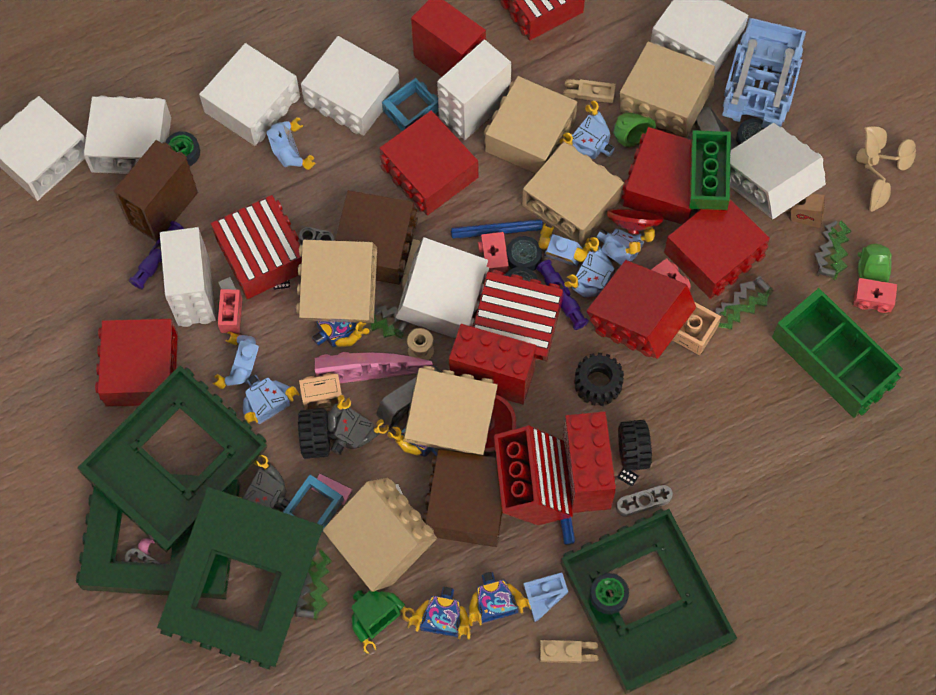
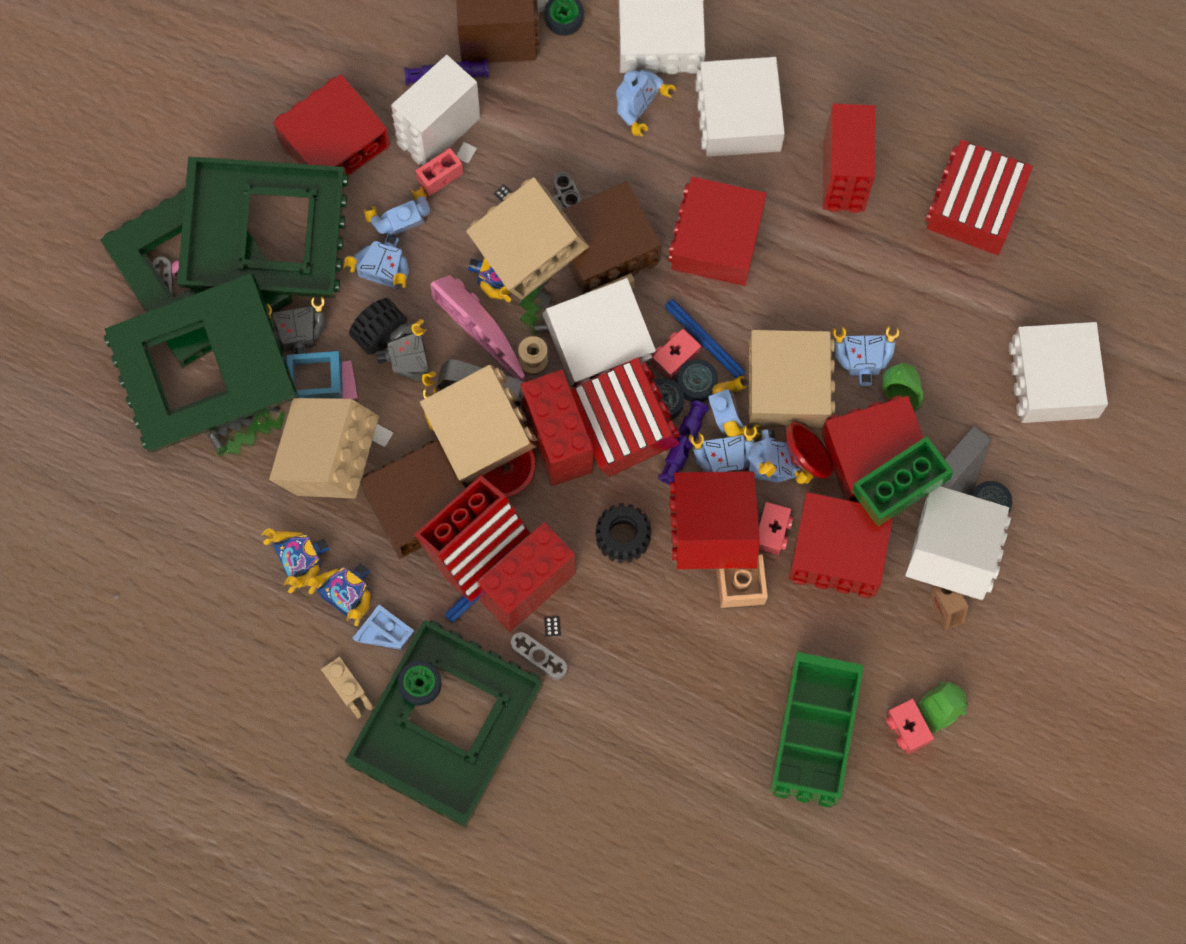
camera: 50 degrees right, 5 degrees up
(259, 246) = (518, 145): red brick -> none
(320, 391) = (419, 303): light nougat brick -> none
(374, 613) = (256, 498): green torso -> none
(389, 104) = (772, 158): dark azure window -> none
(473, 89) = (817, 214): white brick -> none
(529, 124) = (830, 290): tan brick -> none
(590, 90) = (916, 321): tan hinge -> none
(635, 445) = (579, 608): black tyre -> none
(667, 88) = (968, 387): tan brick -> none
(737, 307) = (797, 609): piece -> none
(772, 48) = (1099, 449): light blue piece -> none
(839, 265) = (937, 654): piece -> none
(876, 140) = (1056, 616): tan plant -> none

